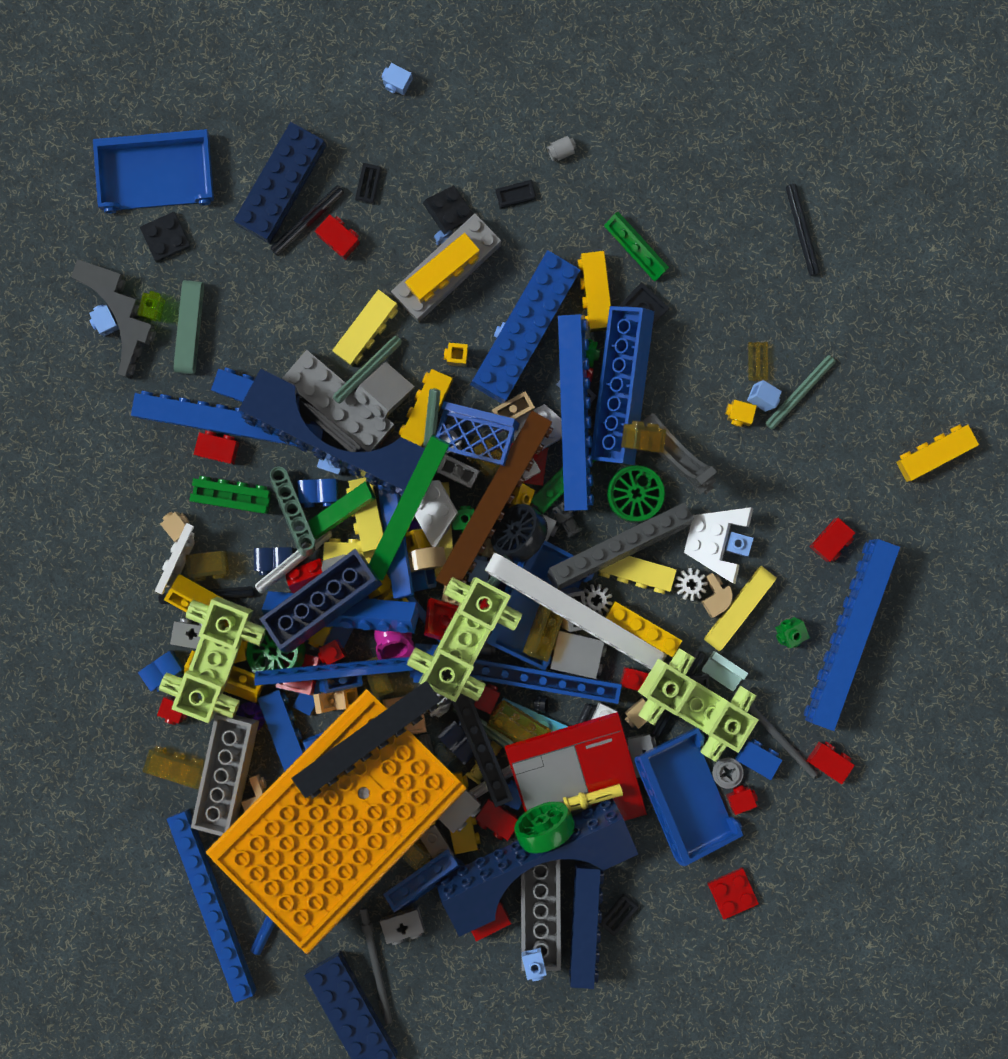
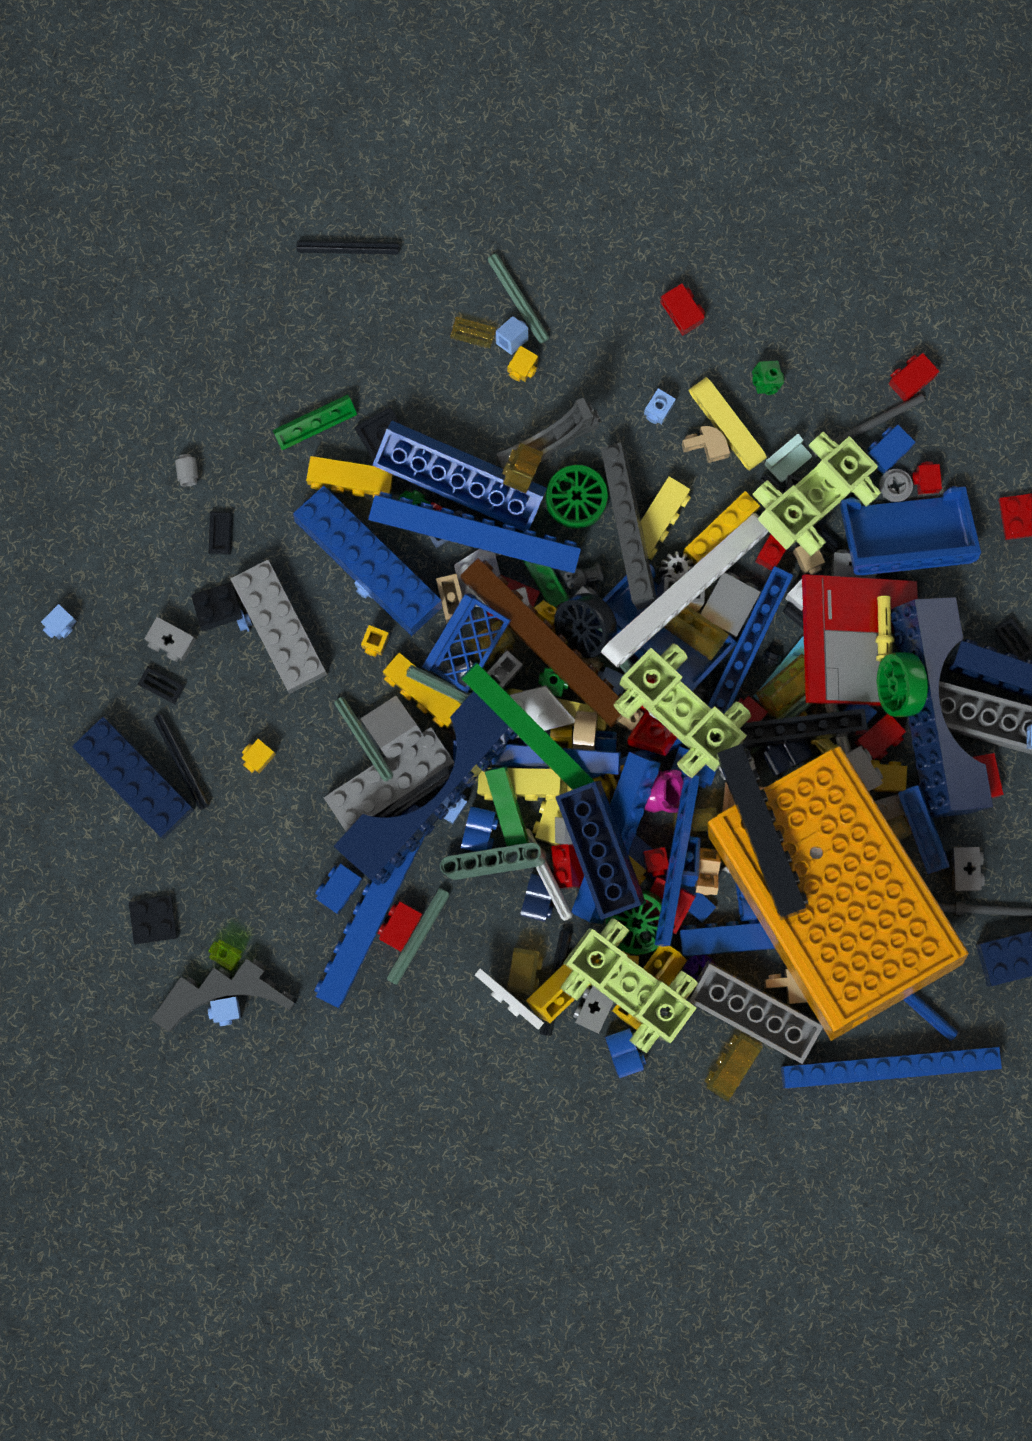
camera: 80 degrees left, 5 degrees down
(153, 170) = (77, 910): blue windscreen -> none
(166, 712) = (671, 1053): red brick -> none
(174, 524) = (471, 993): tan brick -> none
(188, 327) = (259, 920): sand green beam -> none
(213, 466) = (418, 936): none -> sand green axle
(231, 496) = (456, 925): green brick -> none
(329, 283) = (257, 756): none -> yellow brick
(337, 236) = (209, 733): red brick -> none
(365, 328) = (317, 730): light yellow brick -> none
(410, 189) = (182, 641): none -> light grey brick
(442, 268) = (280, 626): yellow brick -> none
(685, 580) = (682, 461): white gear -> none
(709, 537) = (645, 434): white wing -> none
(851, 633) = (786, 317): blue brick -> none
(937, 453) = (622, 178): yellow brick -> none

